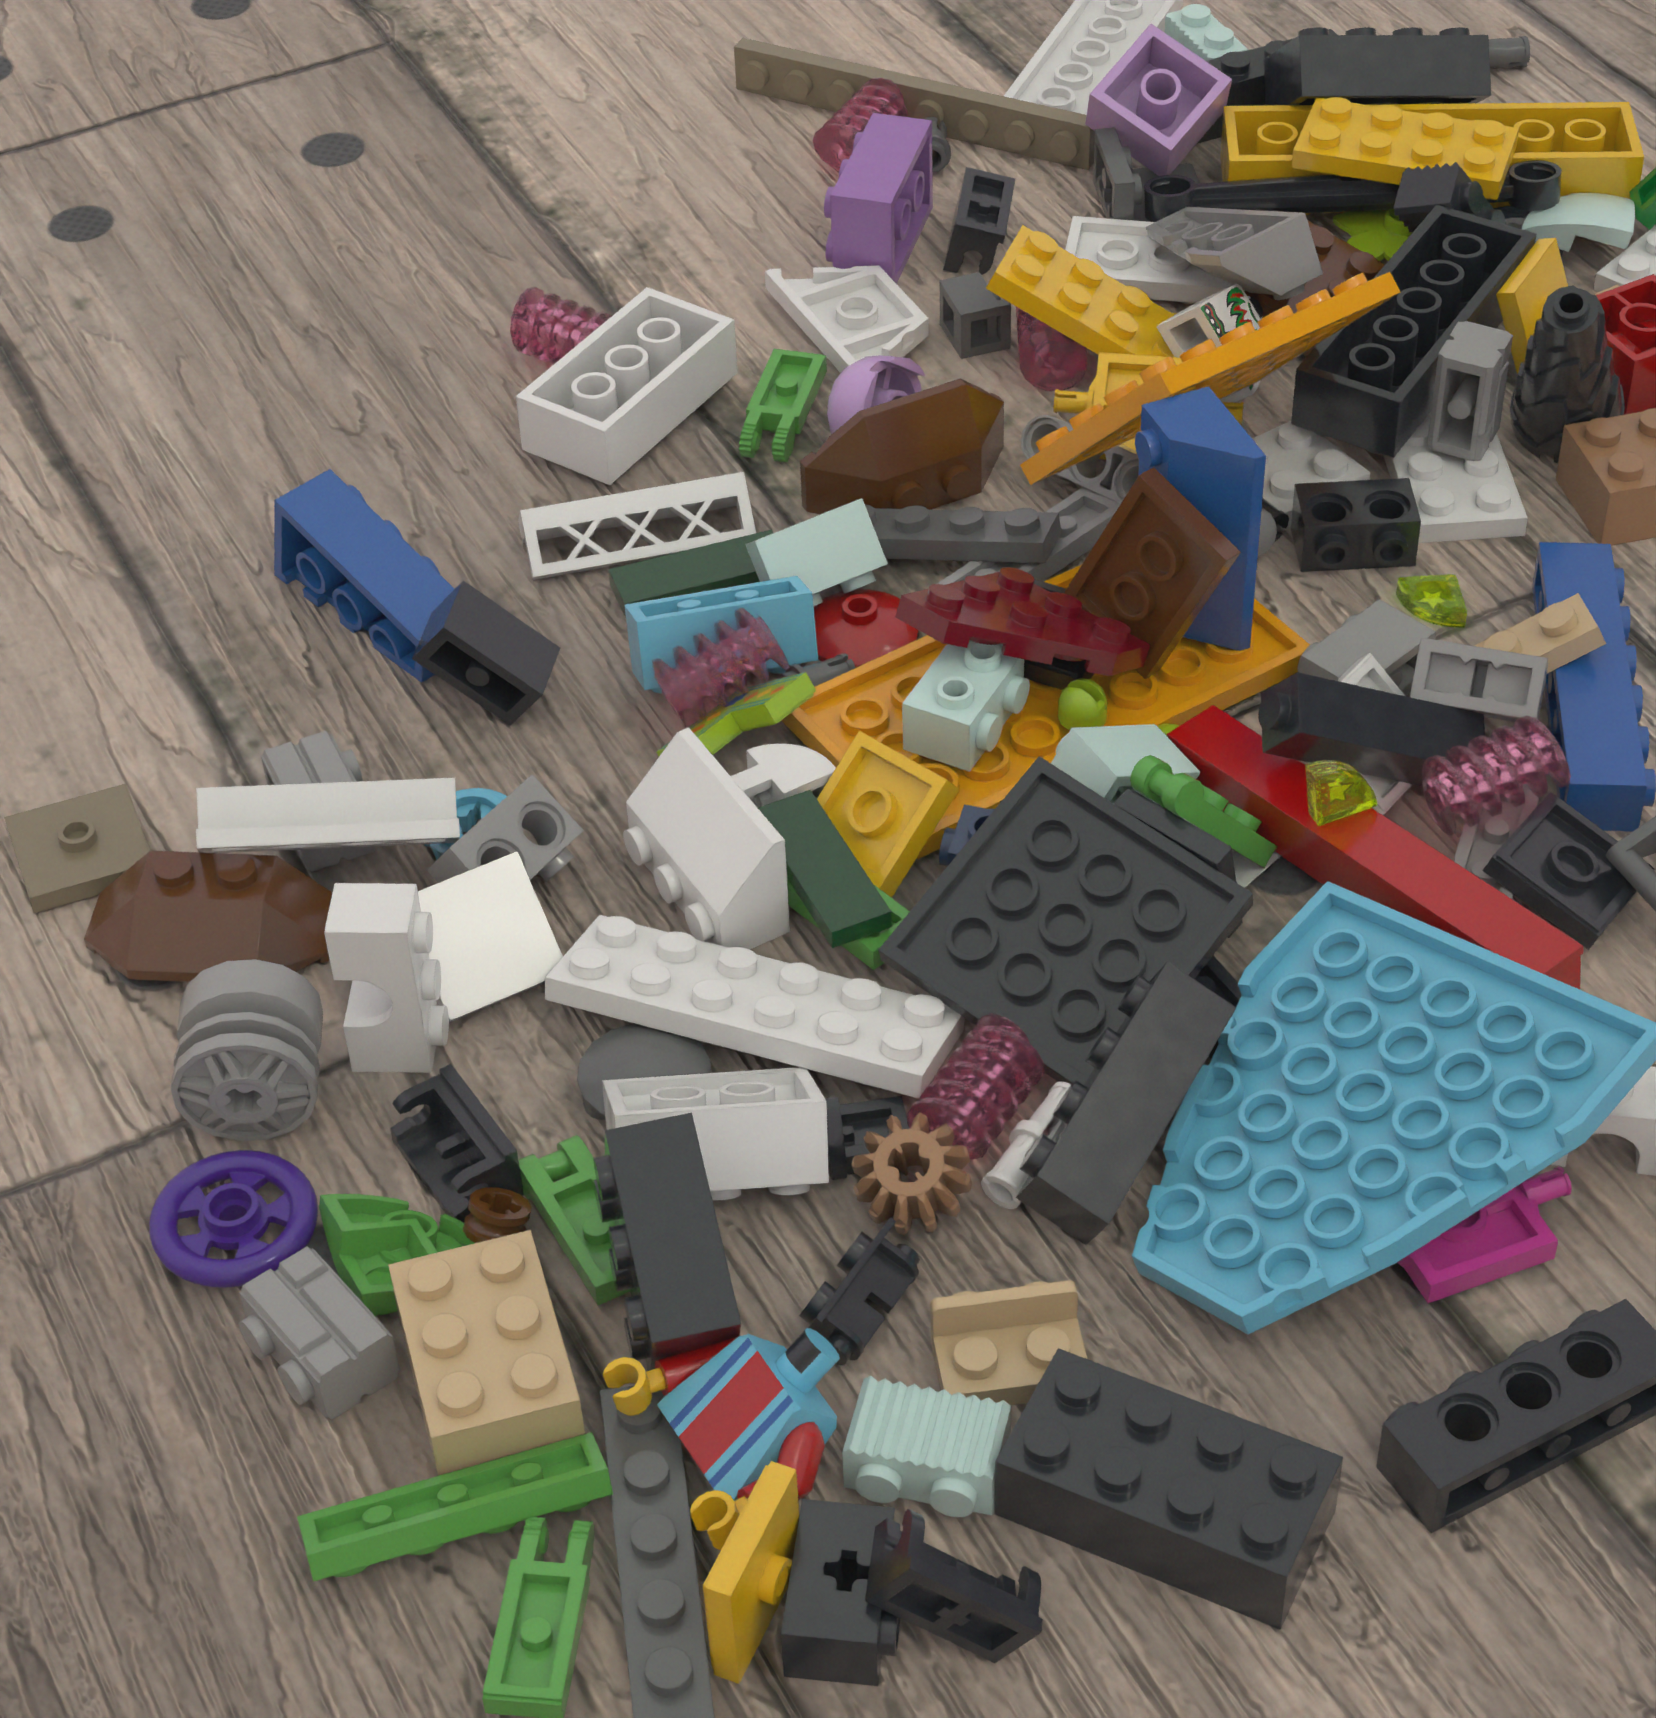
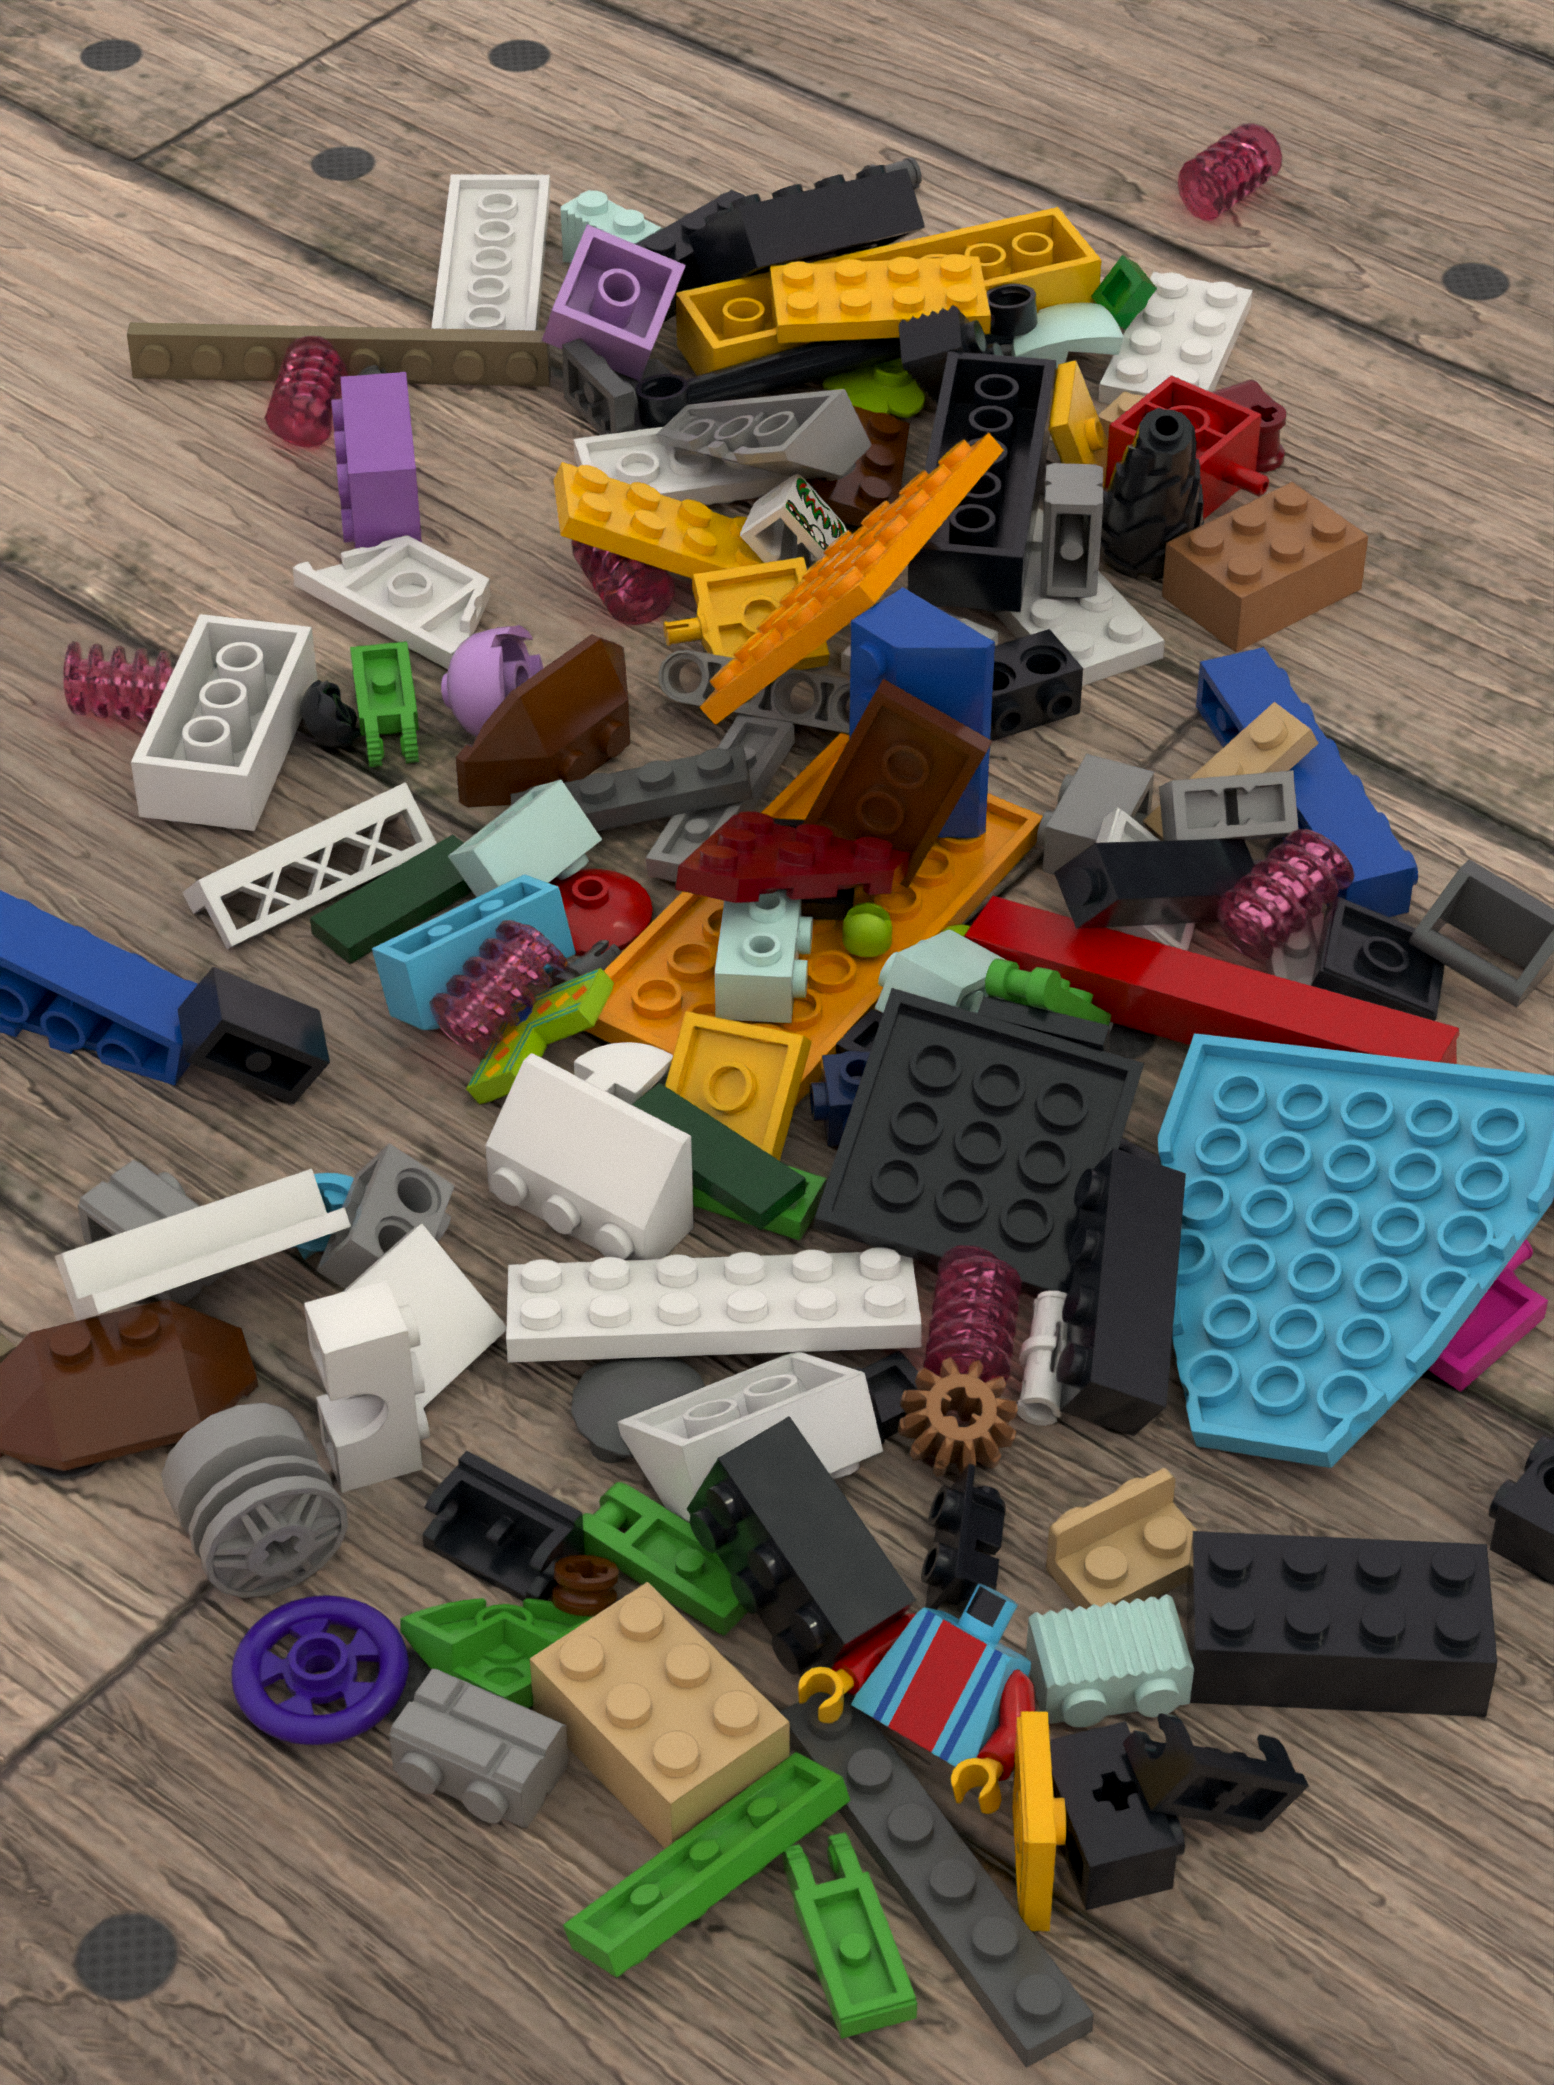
camera: 25 degrees left, 0 degrees up
(723, 401) = (328, 717): none -> black plate
(974, 316) = (530, 565): dark grey brick -> none
(979, 218) = (480, 463): black hinge -> none
(1336, 791) = (1166, 947): clear neon green tile -> none
(1433, 599) = (1118, 740): clear neon green tile -> none

